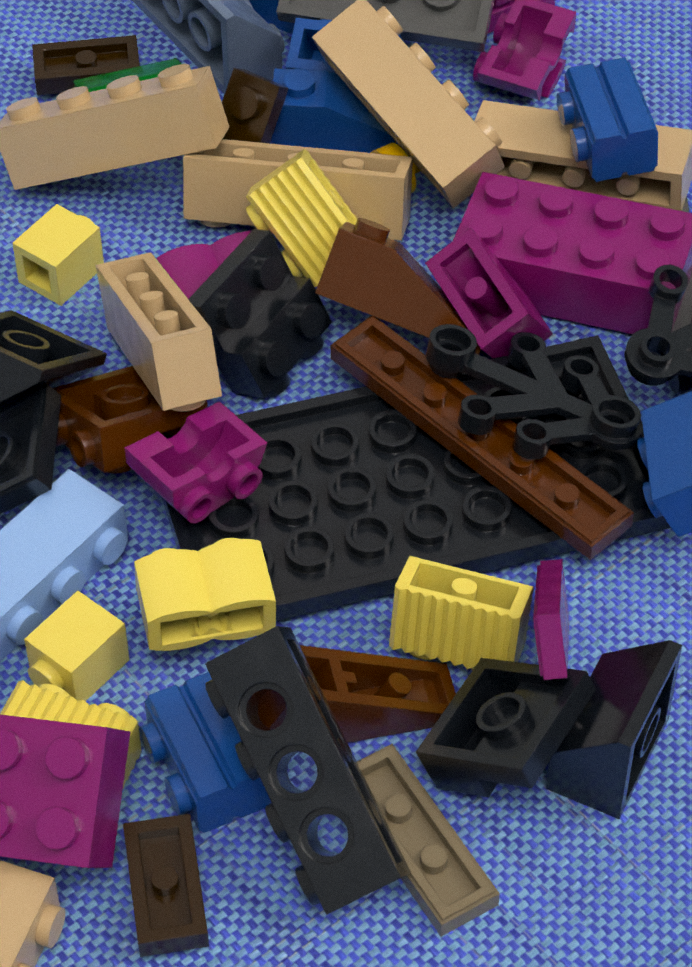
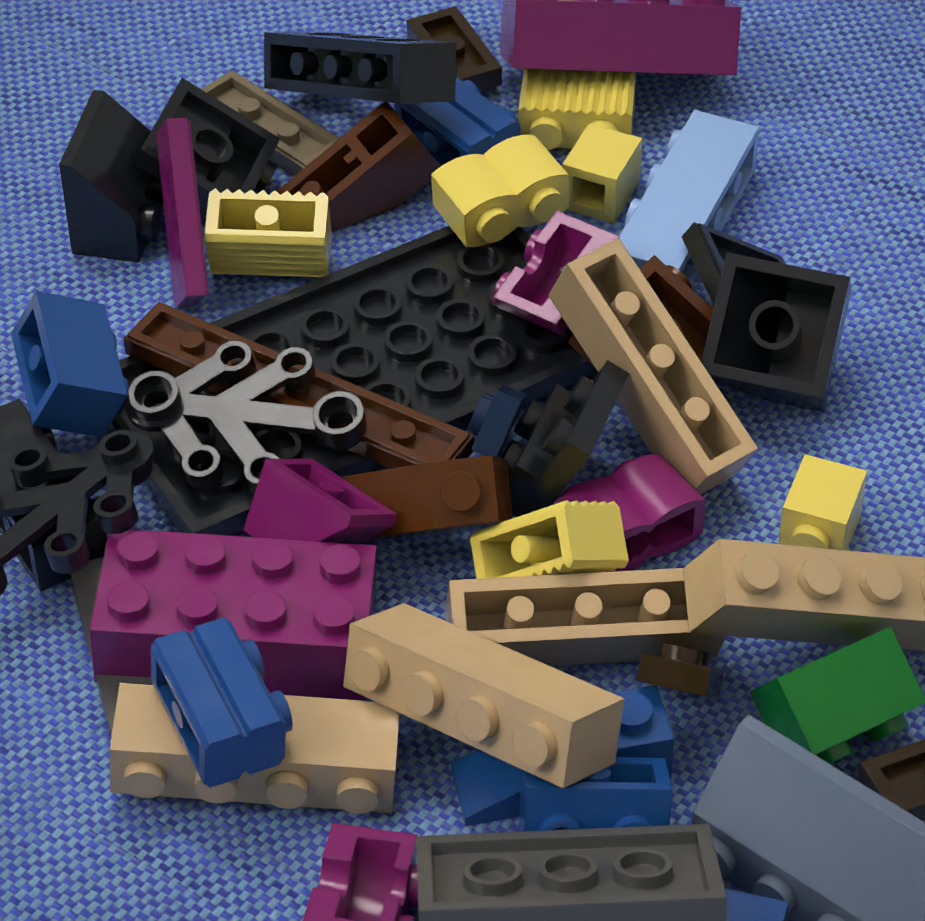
camera: 165 degrees right, 5 degrees down
(304, 343) = (495, 420): none -> dark blue plate

